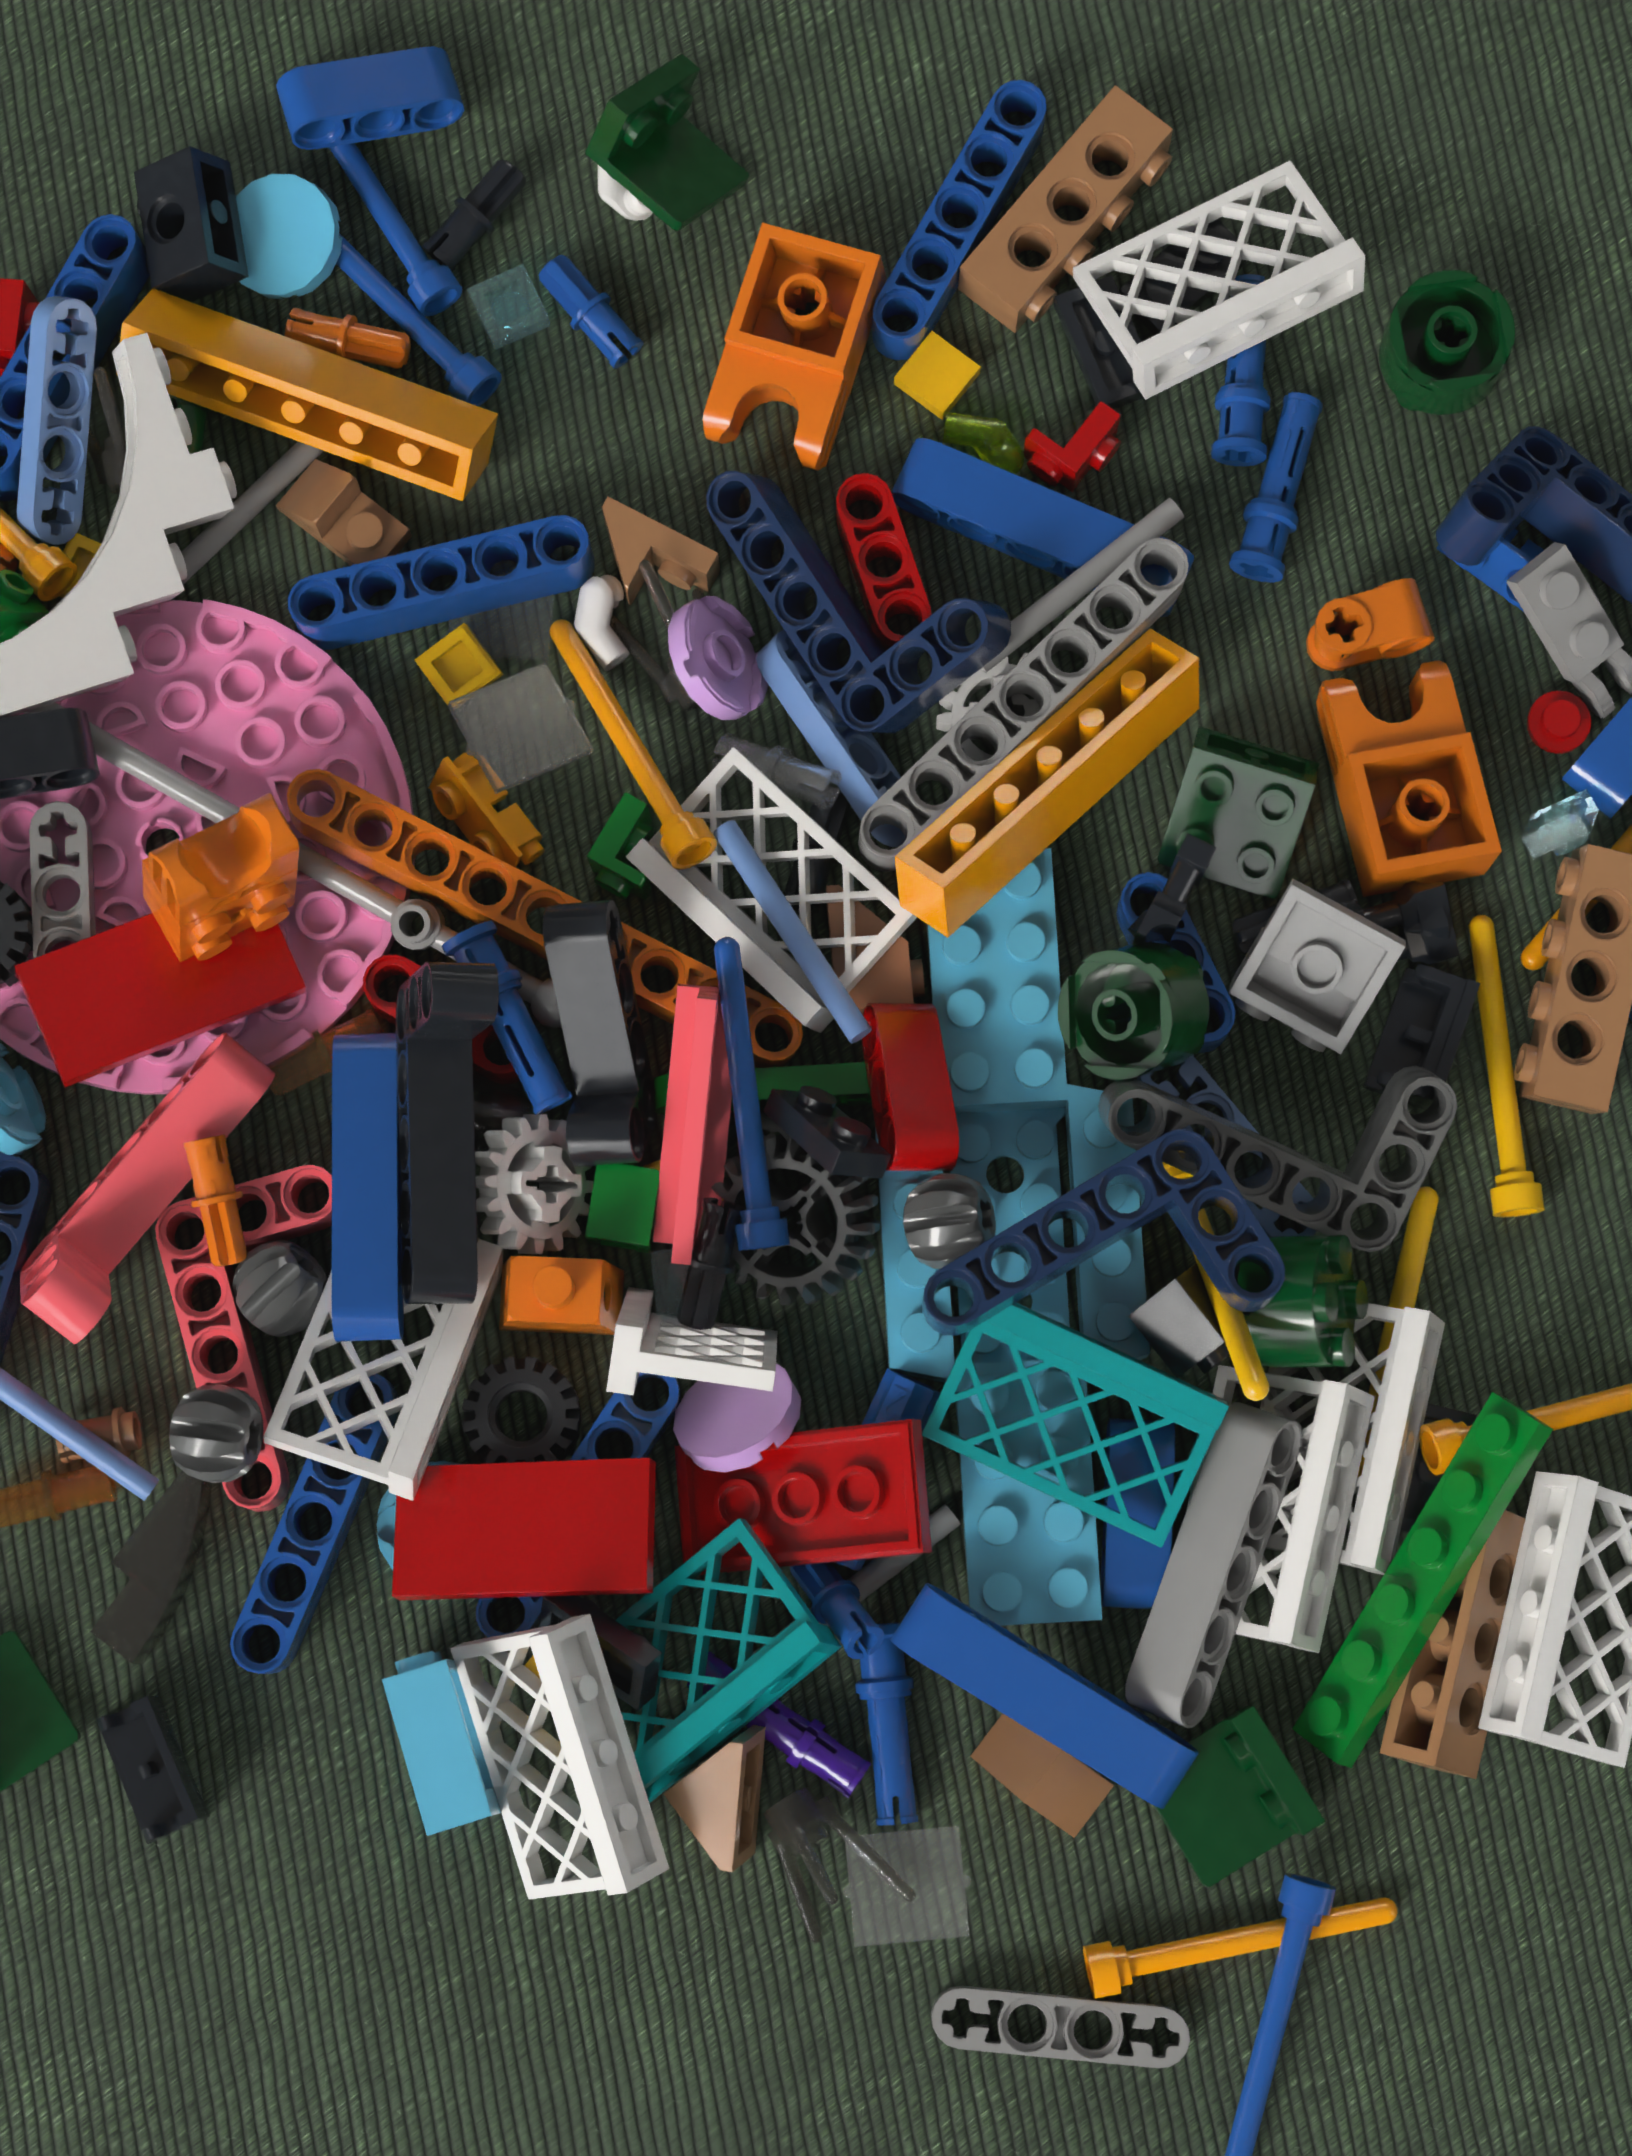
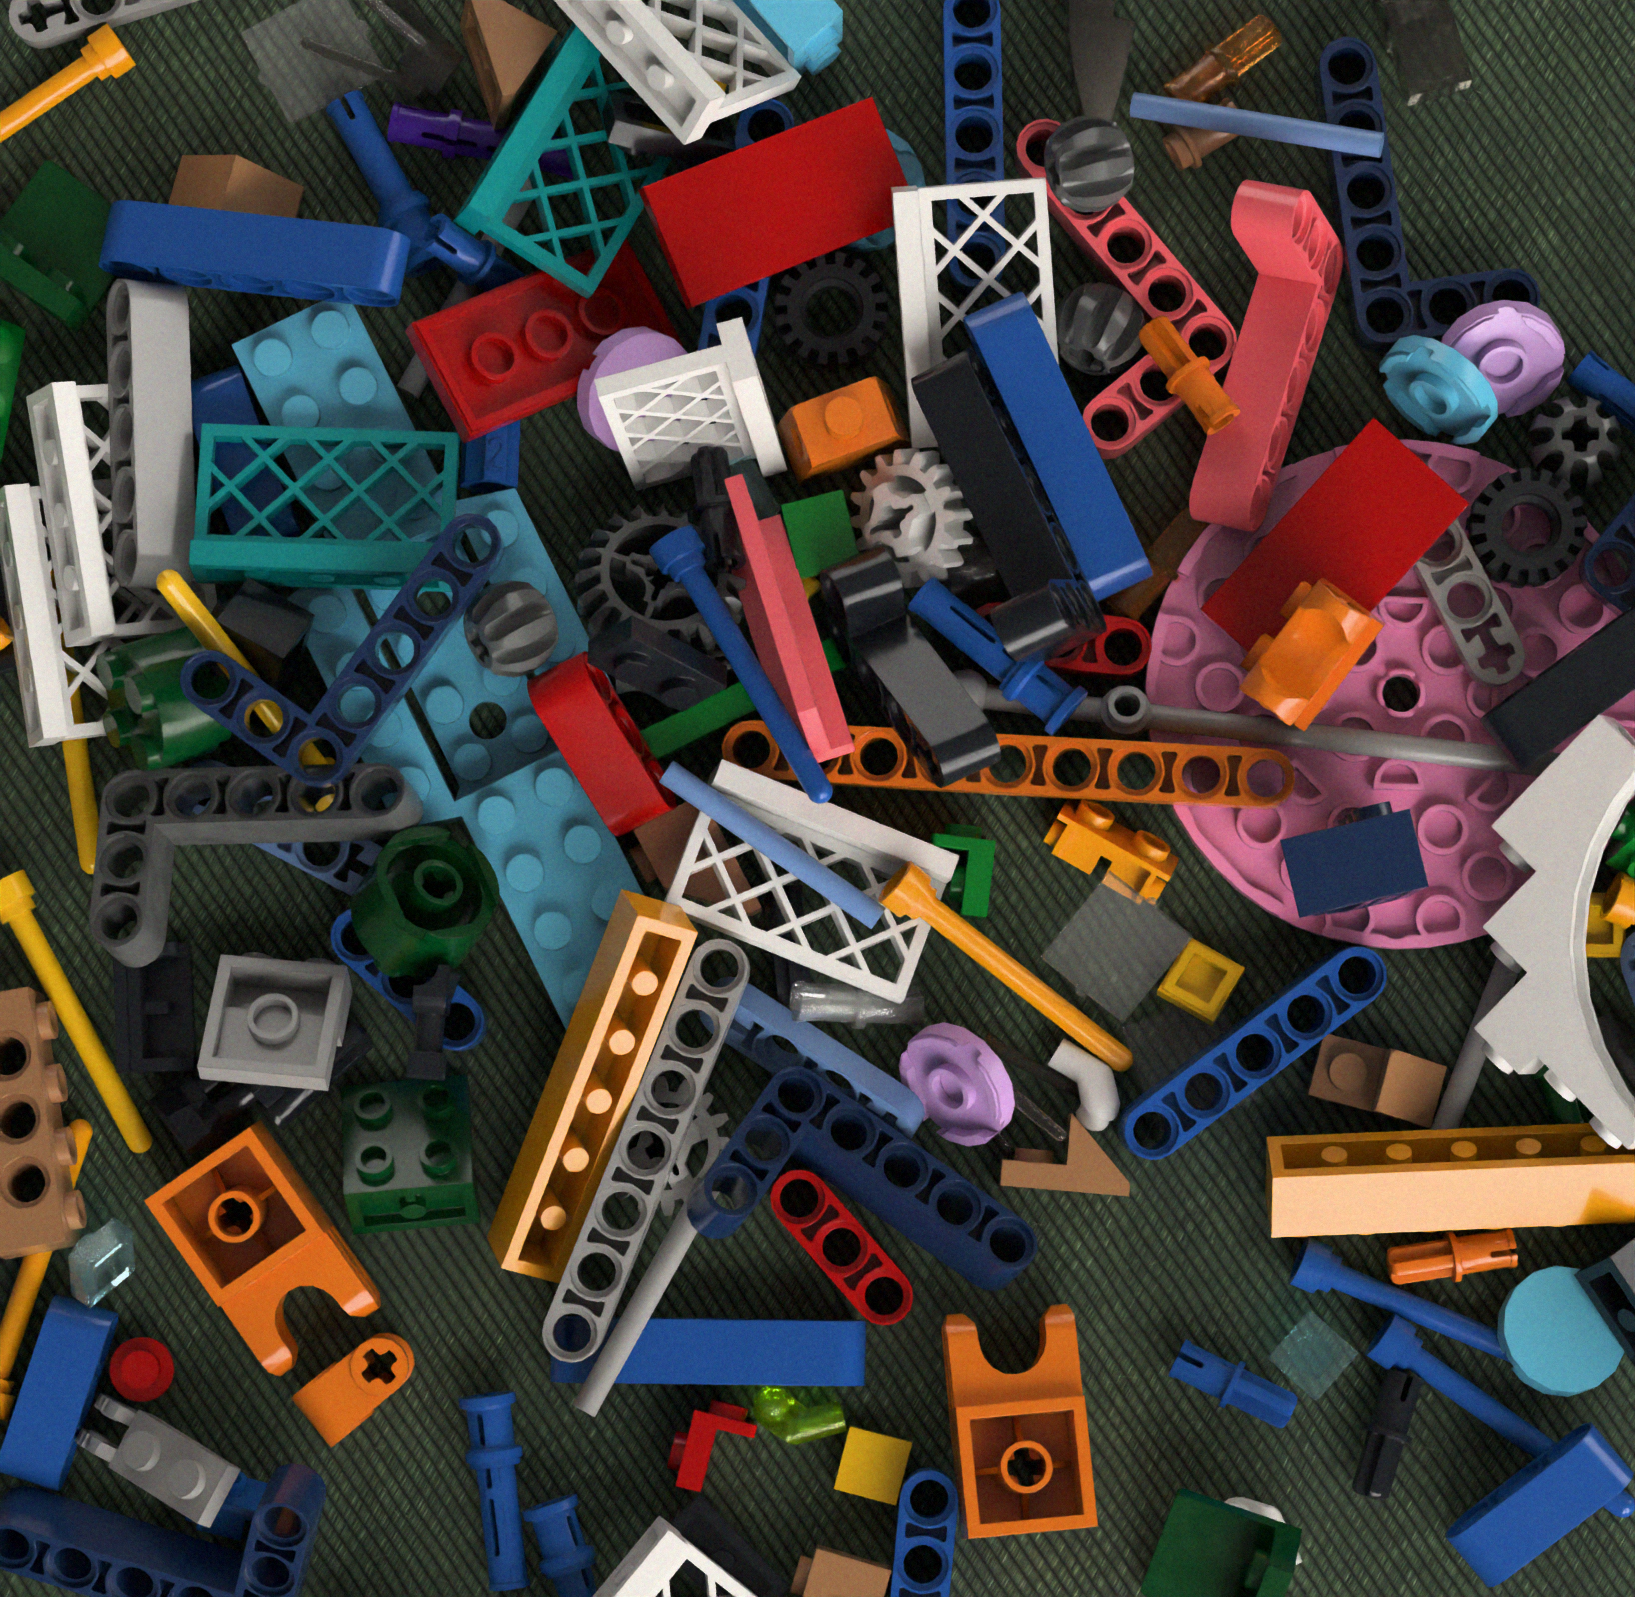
camera: 160 degrees right, 5 degrees up
(265, 672) = (1356, 864): none -> dark blue wedge

